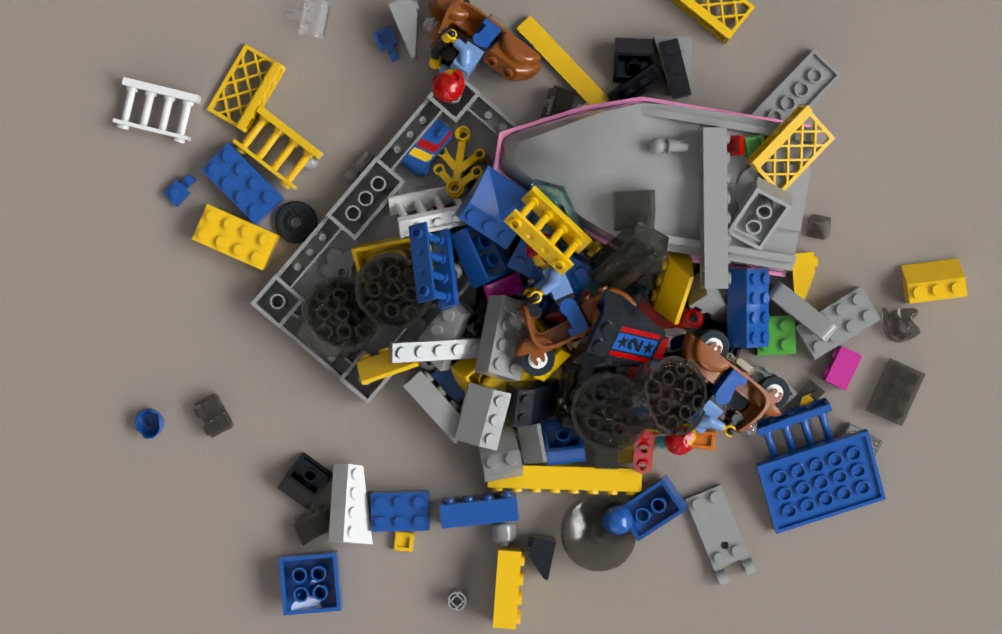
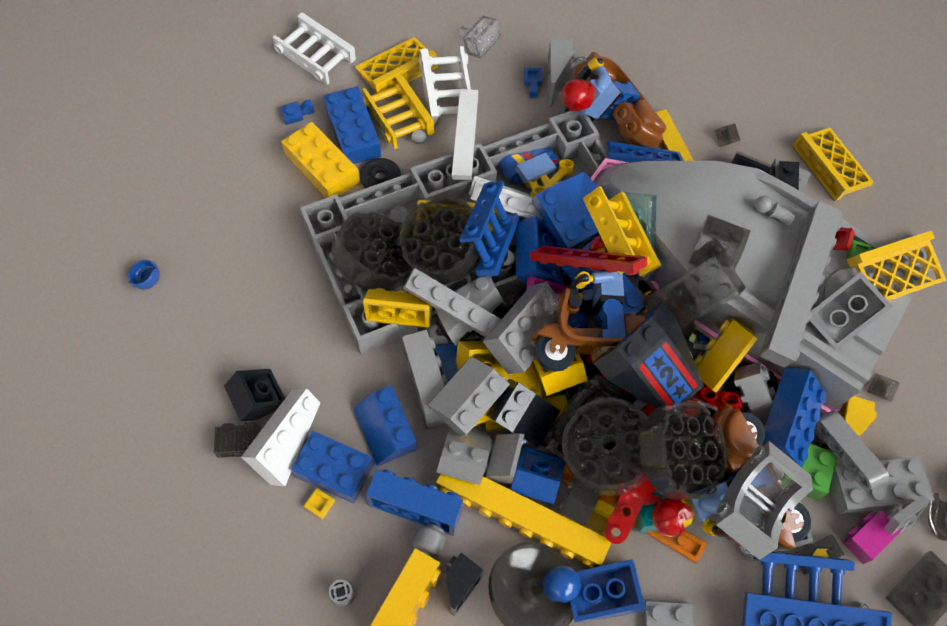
camera: 20 degrees right, 25 degrees down
(213, 415) = (207, 295): clear smoke brick -> none
(291, 99) = (430, 77): none -> white fence
(310, 582) = (198, 495): blue slope -> none
(357, 154) = (465, 135): none -> white tile
(423, 457) = (385, 426): none -> blue slope
(437, 157) = (535, 168): none -> medium blue tile
(530, 273) = (592, 259): none -> red plate
(532, 95) = (636, 153): none -> blue tile
(599, 17) = (727, 135): none -> clear smoke slope
(739, 403) = (760, 497): none -> light grey window
(863, 341) = (907, 516): none -> light grey plate

